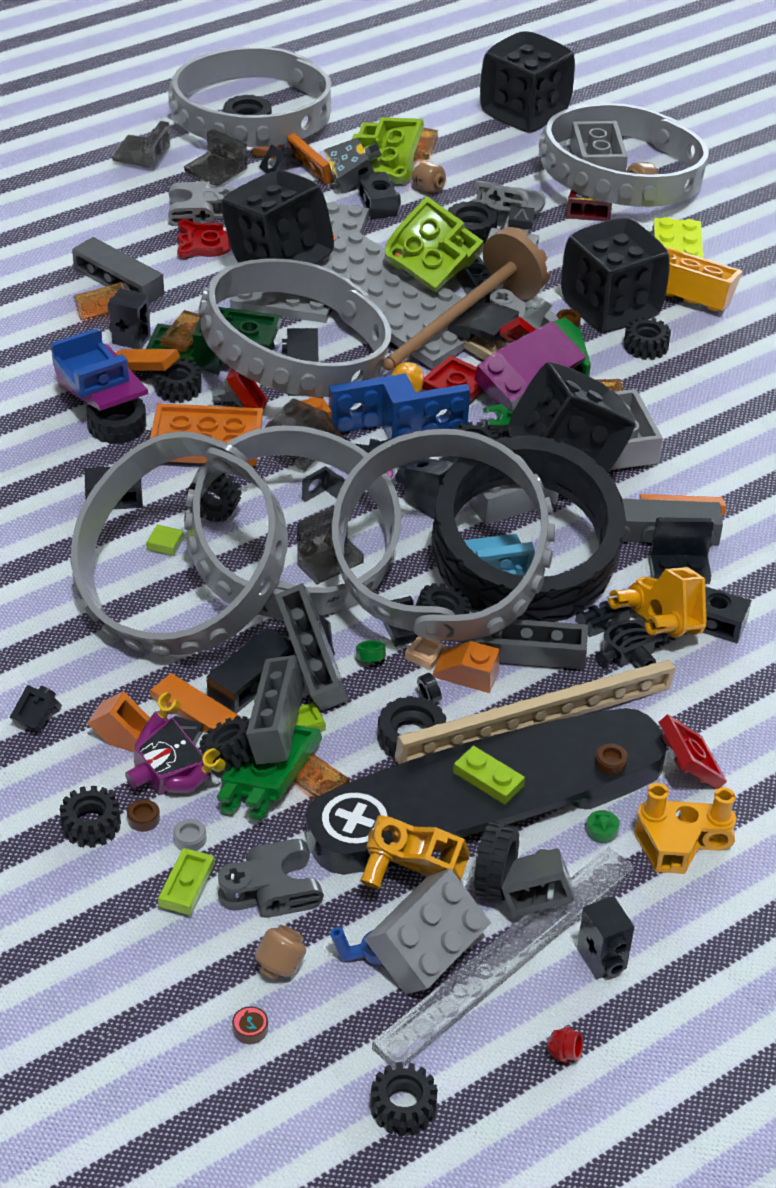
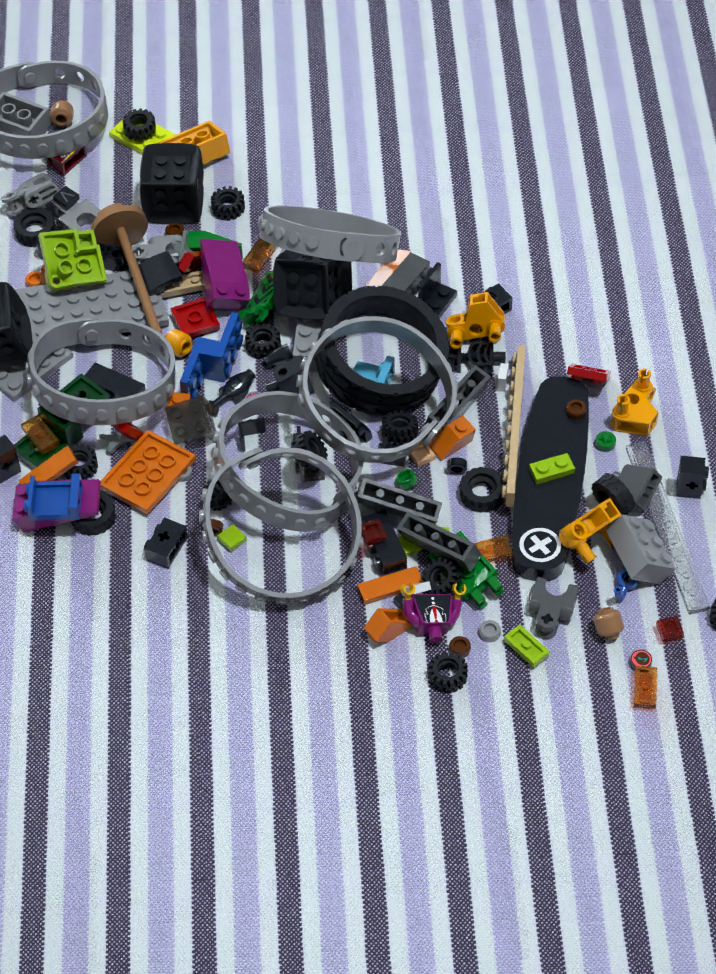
camera: 55 degrees left, 10 degrees up
(35, 707) = (341, 664): black bracket -> none
(164, 514) = (217, 526): none -> reddish brown tile
(191, 722) = (420, 587): none -> white tile
(202, 1047) = (645, 687): none -> clear orange plate
(243, 640) = (373, 532): none -> clear red plate
(295, 523) = (310, 442): none -> black tyre
(326, 1034) = (669, 629): none -> clear red plate
(409, 556) = (358, 426): none -> black slope
(583, 360) = (329, 234): none -> light grey piece
(610, 667) = (503, 376): none -> white tile
(679, 226) = (139, 117): none -> black tyre

